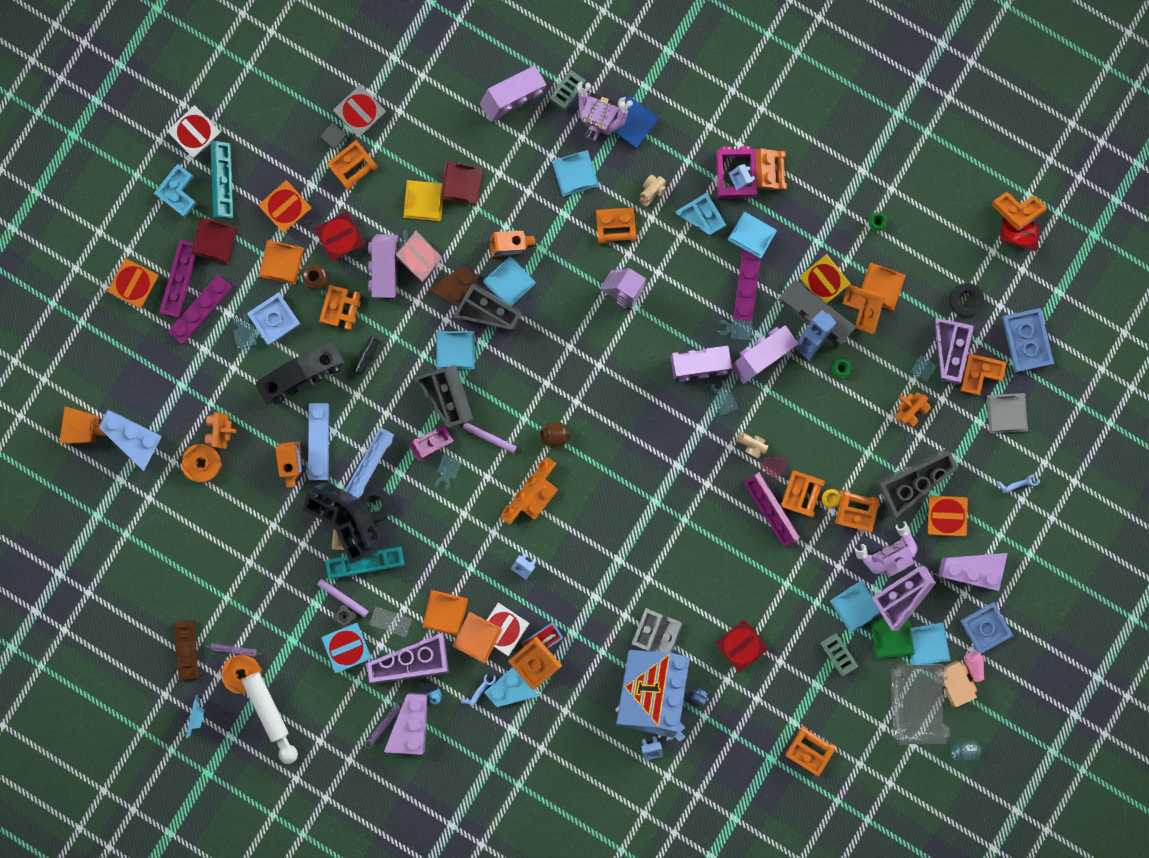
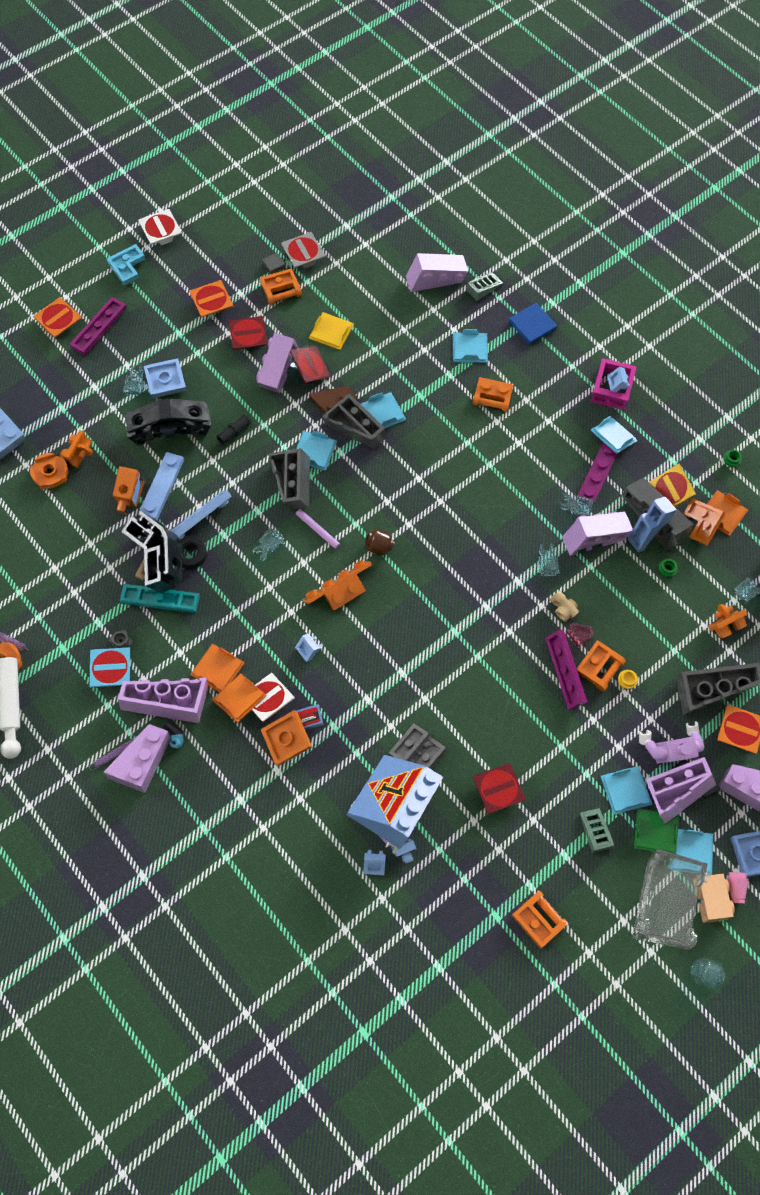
camera: 15 degrees right, 20 degrees down
(200, 309) = (105, 355): magenta plate -> none
(213, 240) = (140, 306): dark red piece -> none
(221, 180) = (166, 266): teal plate -> none
(281, 262) = (190, 340): orange piece -> none
(312, 272) = (214, 355): reddish brown head -> none
(334, 305) = (221, 383): orange plate -> none
(343, 598) = (126, 624): lavender bar -> none
(390, 621) = (162, 659): clear plate -> none
(430, 443) = (258, 513): plate -> none
(461, 183) = (369, 324): dark red piece -> none
(479, 691) = (223, 750): light blue piece -> none
(502, 244) = (393, 377): orange torso -> none
(510, 689) = (252, 758): medium azure wing -> none
(601, 113) = (508, 305): lavender torso -> none
(624, 286) = (487, 433): lavender wedge -> none
(653, 187) = (534, 374): tan plate -> none
(699, 697) = (440, 826): medium blue plate -> none
(701, 363) = (534, 521): lavender wedge -> none
(702, 214) = (573, 407): medium azure wing -> none
(766, 169) = (640, 388): orange plate -> none
(855, 517) = (647, 700): orange plate -> none

